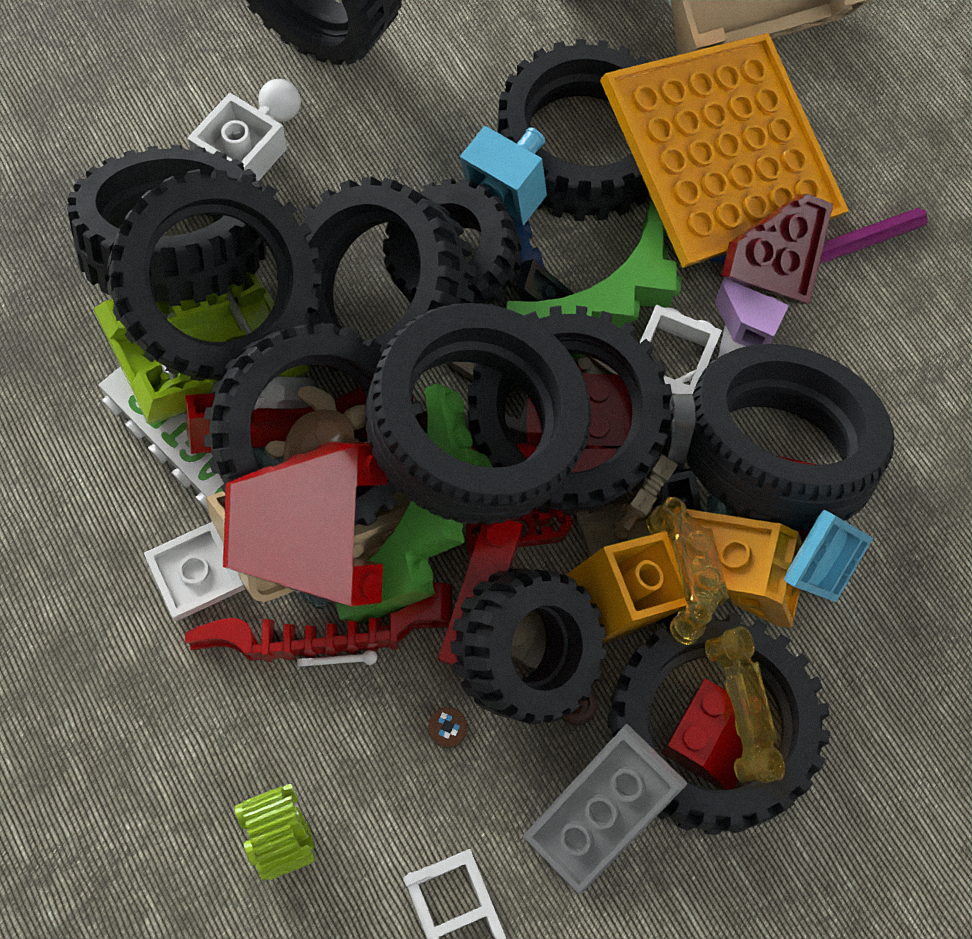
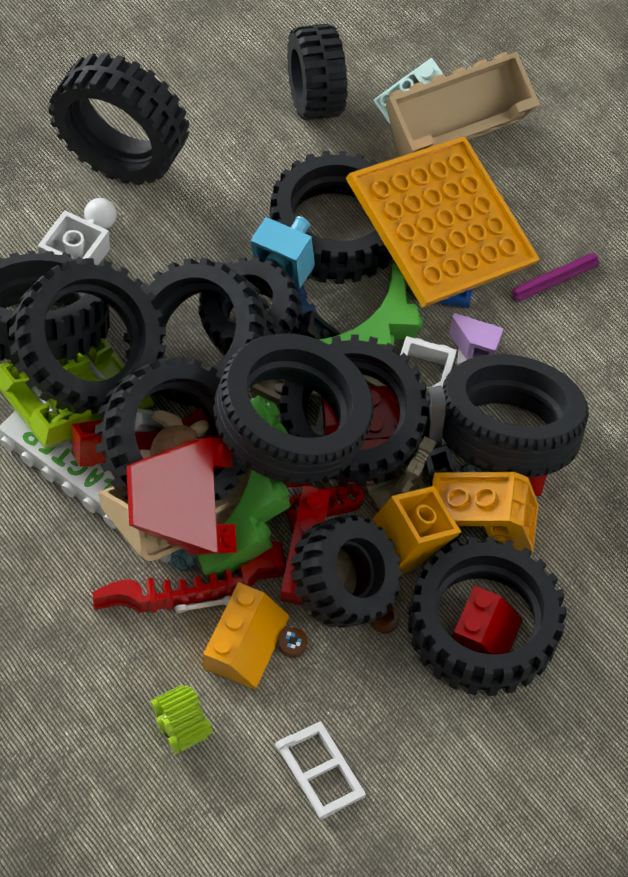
camera: 10 degrees left, 10 degrees down
(192, 572) = (89, 553): white plate -> none
(384, 715) = (245, 637): none -> light orange slope
(604, 809) = (414, 677): light grey tile -> none
(697, 565) = (459, 506): clear yellow plate -> none
(750, 706) = (503, 585): clear yellow plate -> none
(782, 250) = (494, 290): plate -> none
(828, 557) = (552, 492): medium azure slope -> none

